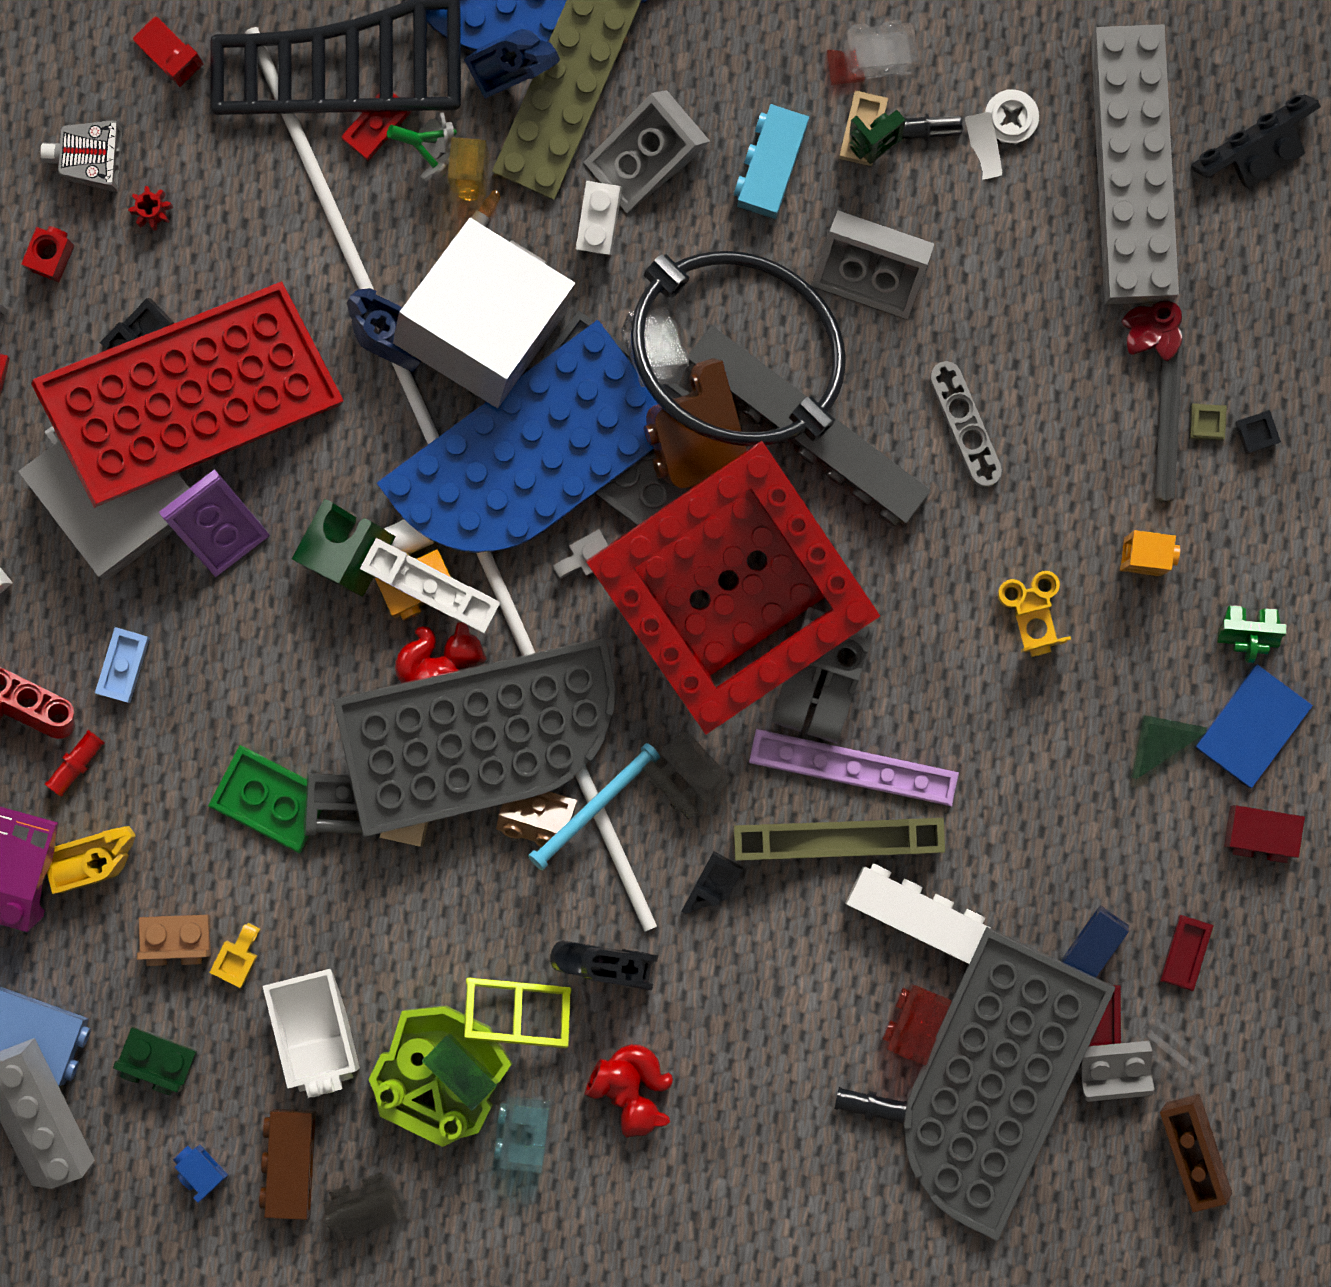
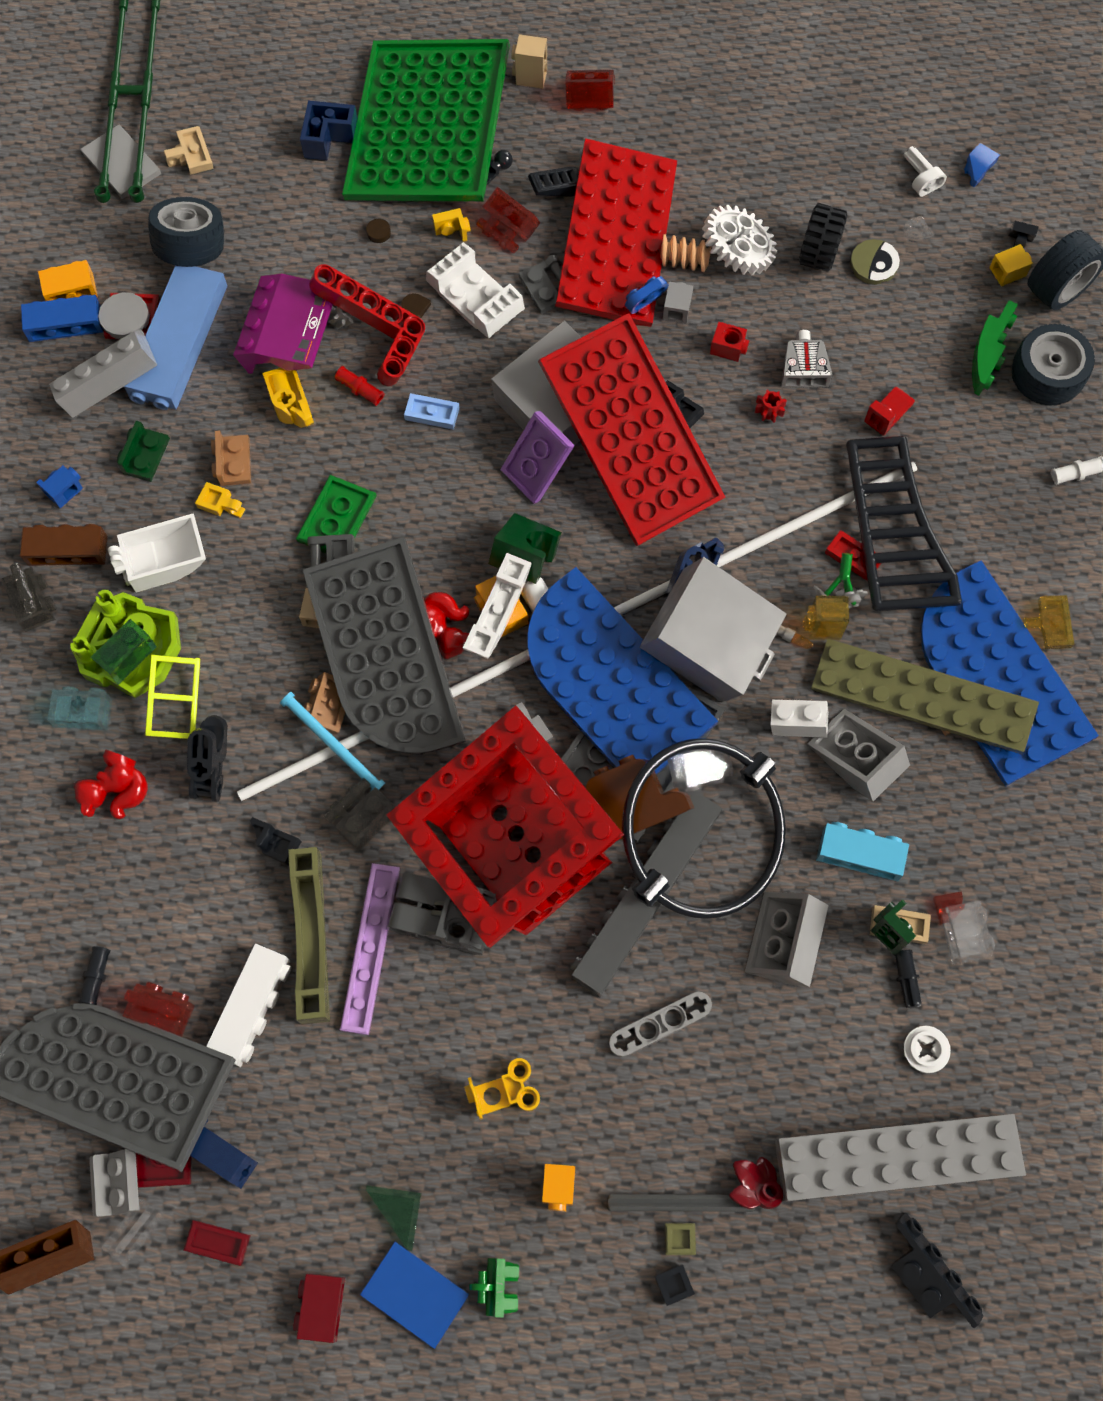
camera: 85 degrees right, 15 degrees down
(510, 61) = (915, 641): dark blue piece -> none
(984, 143) = (900, 1027): white sticker -> none

